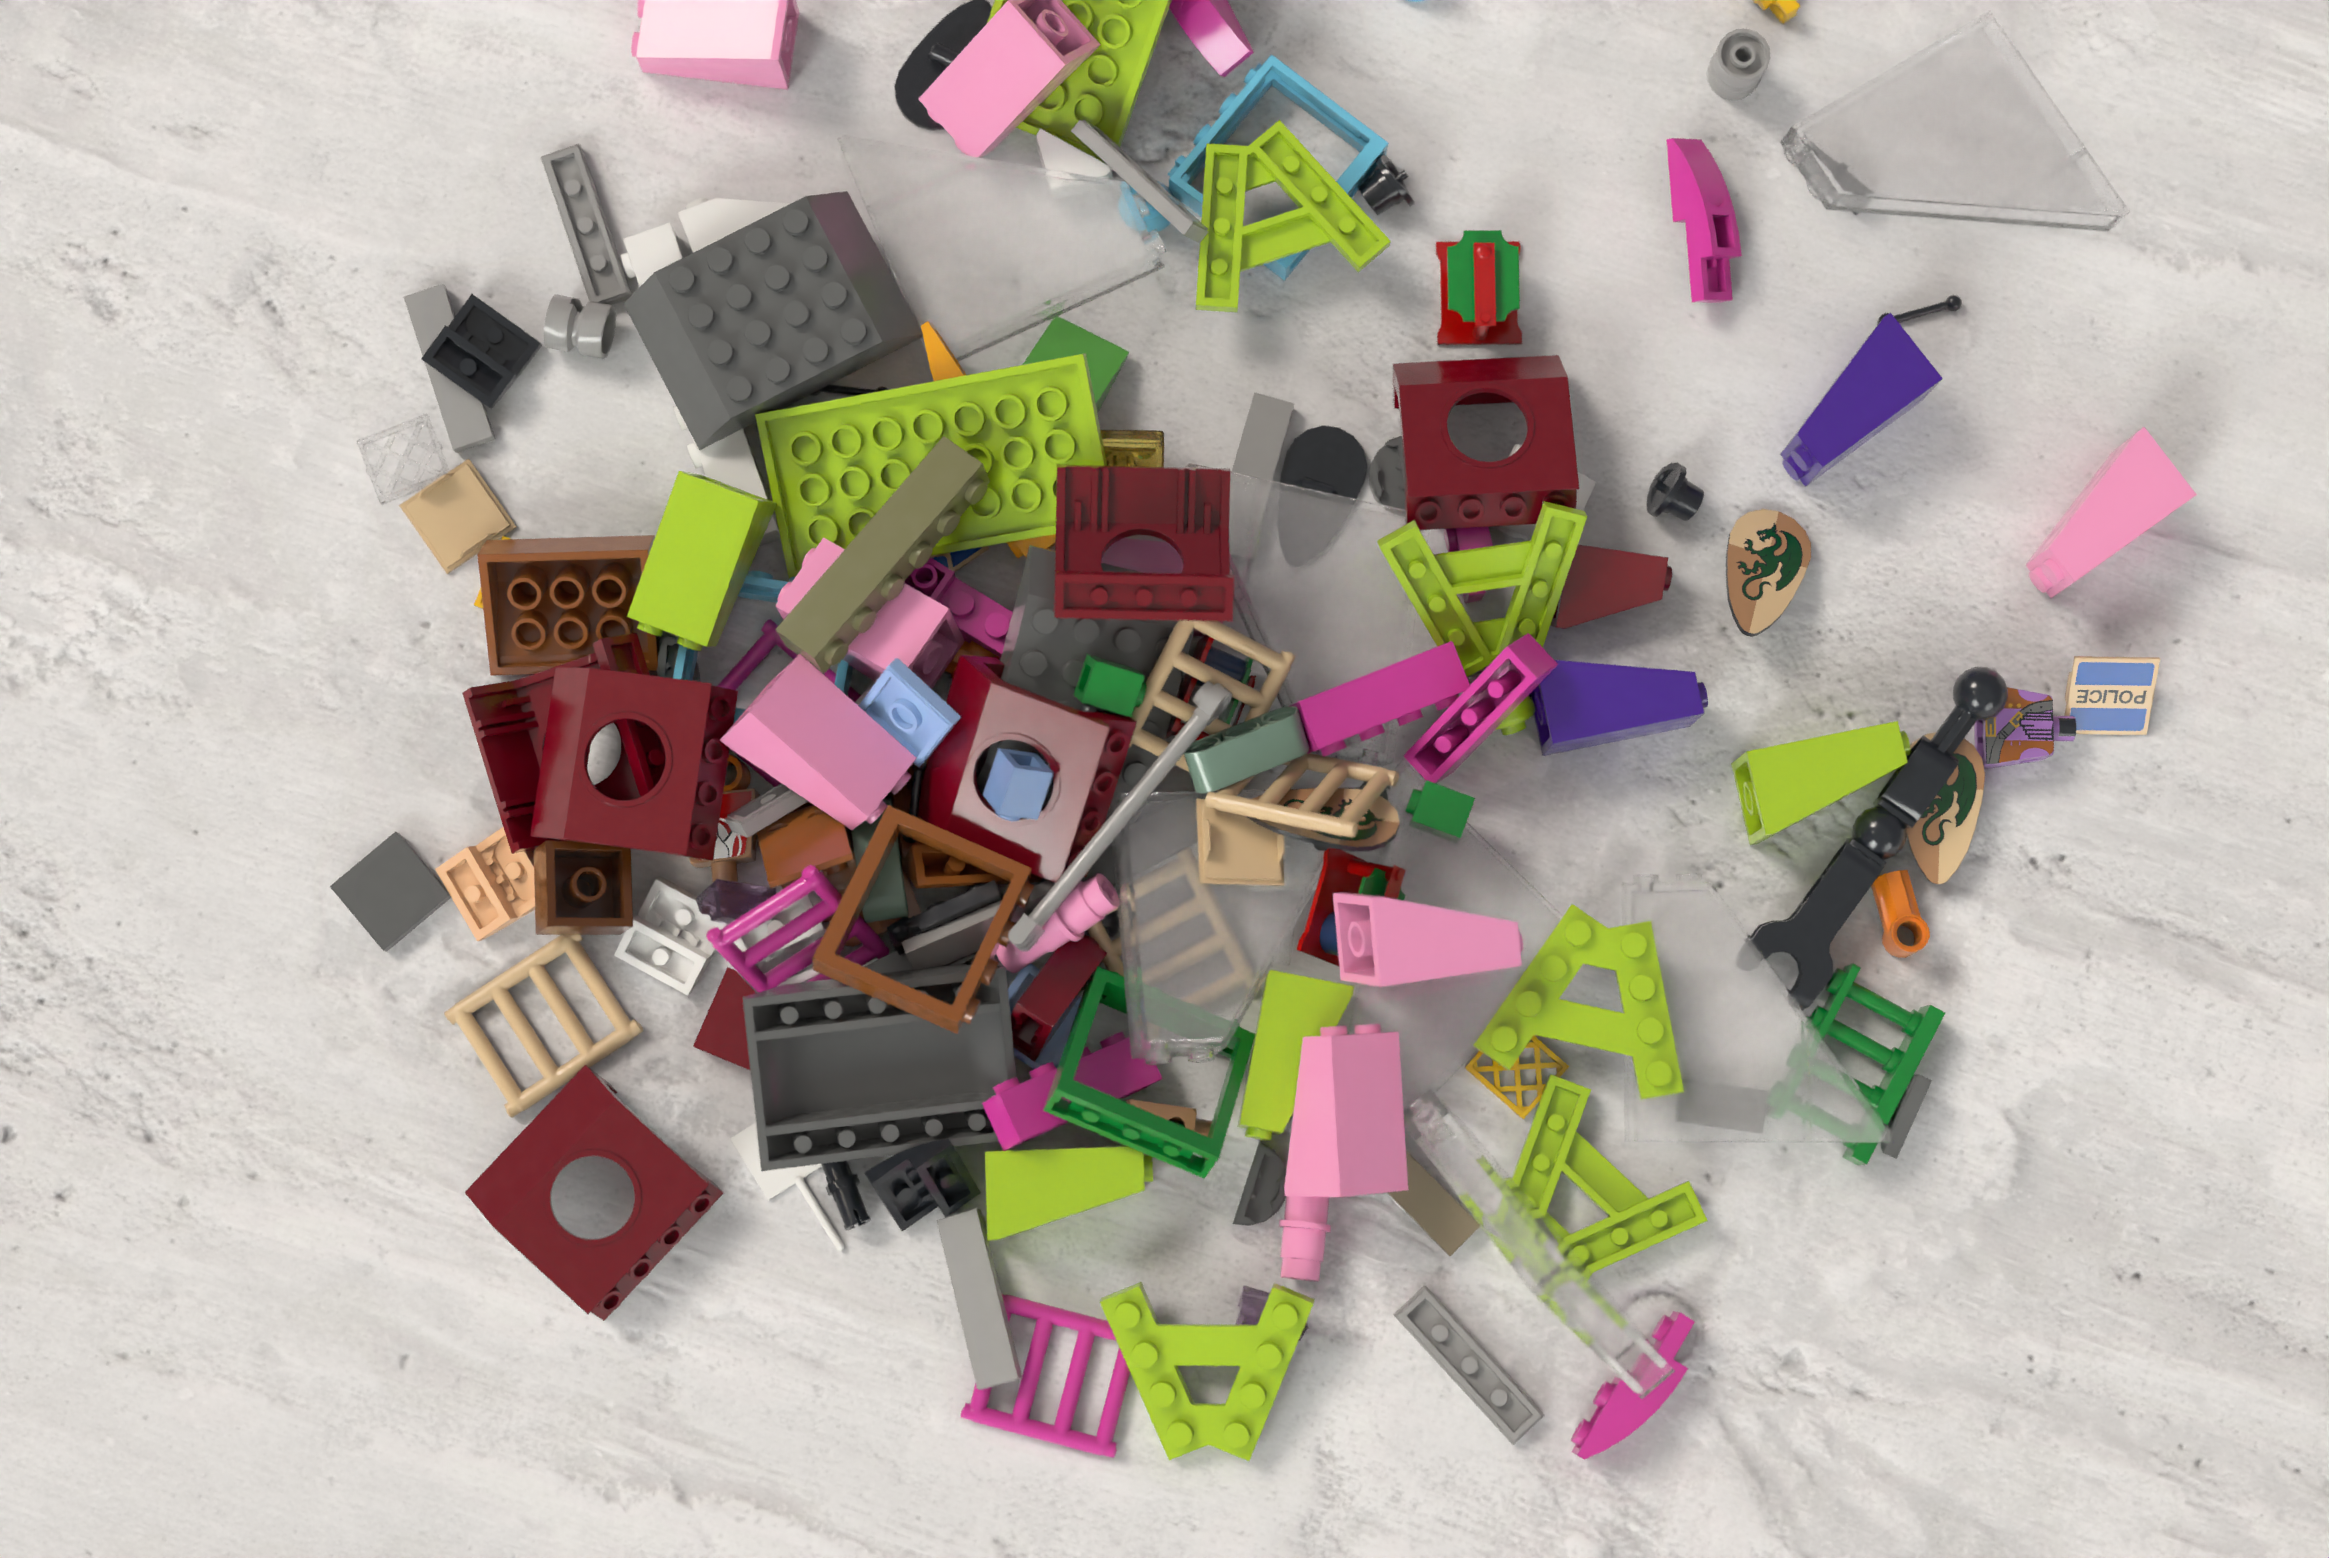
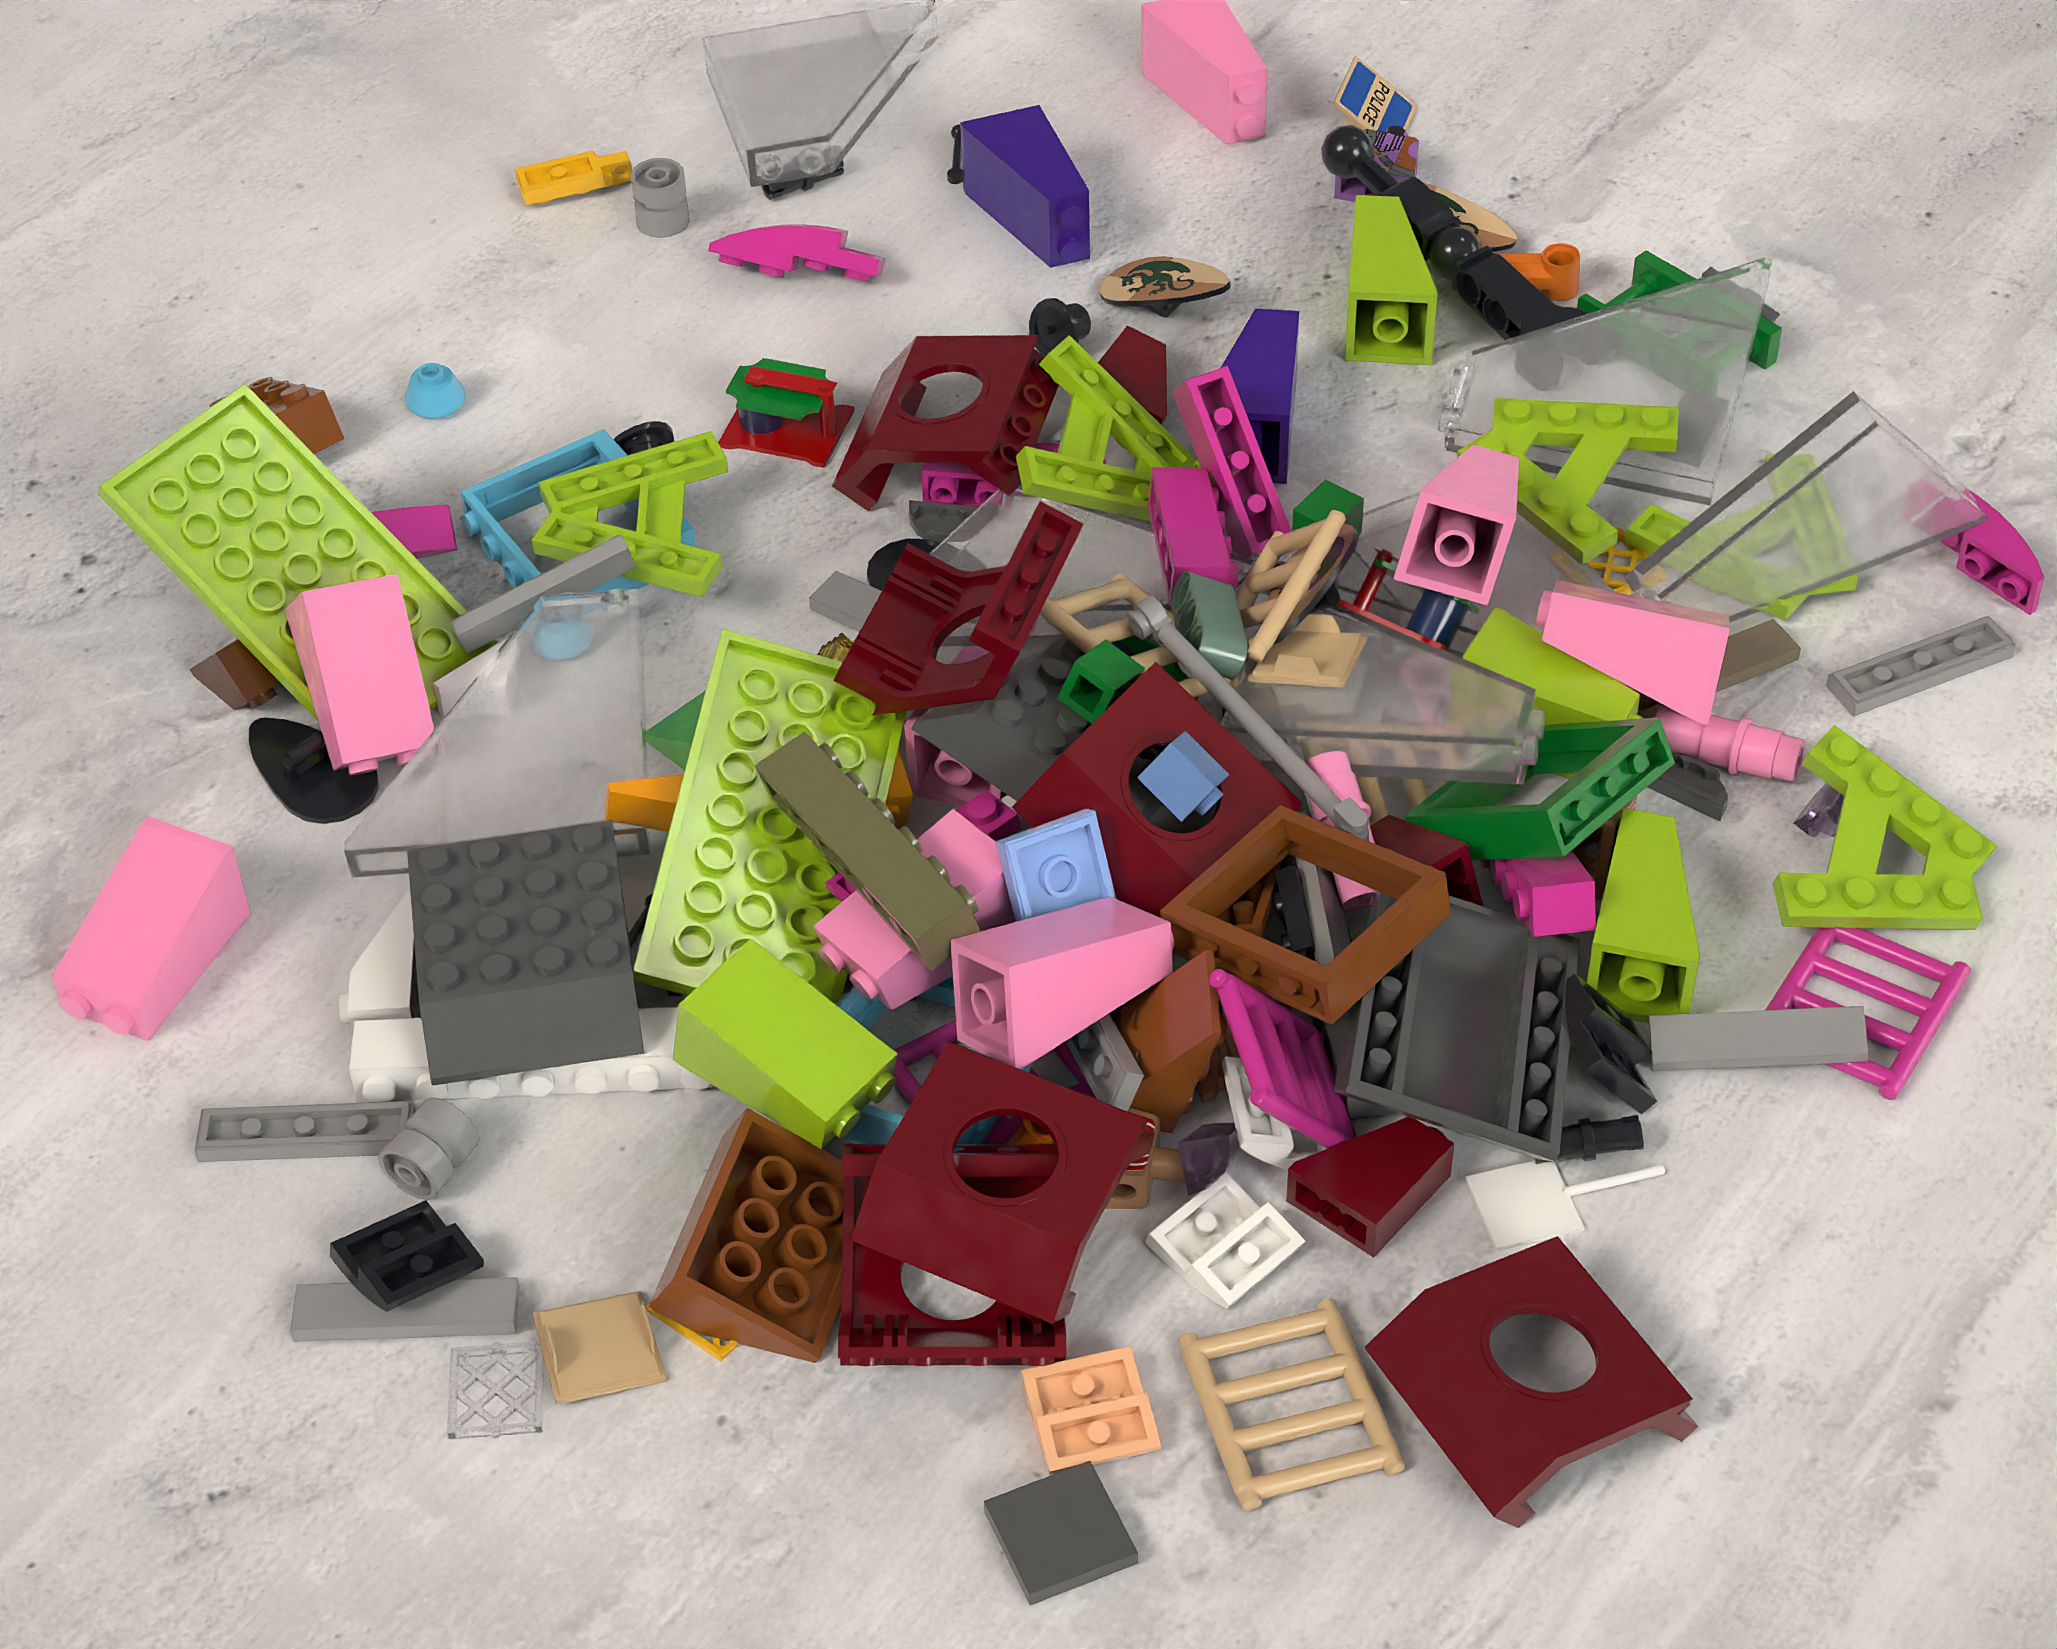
camera: 70 degrees left, 35 degrees down
(582, 889) = (1138, 1291): reddish brown brick -> none

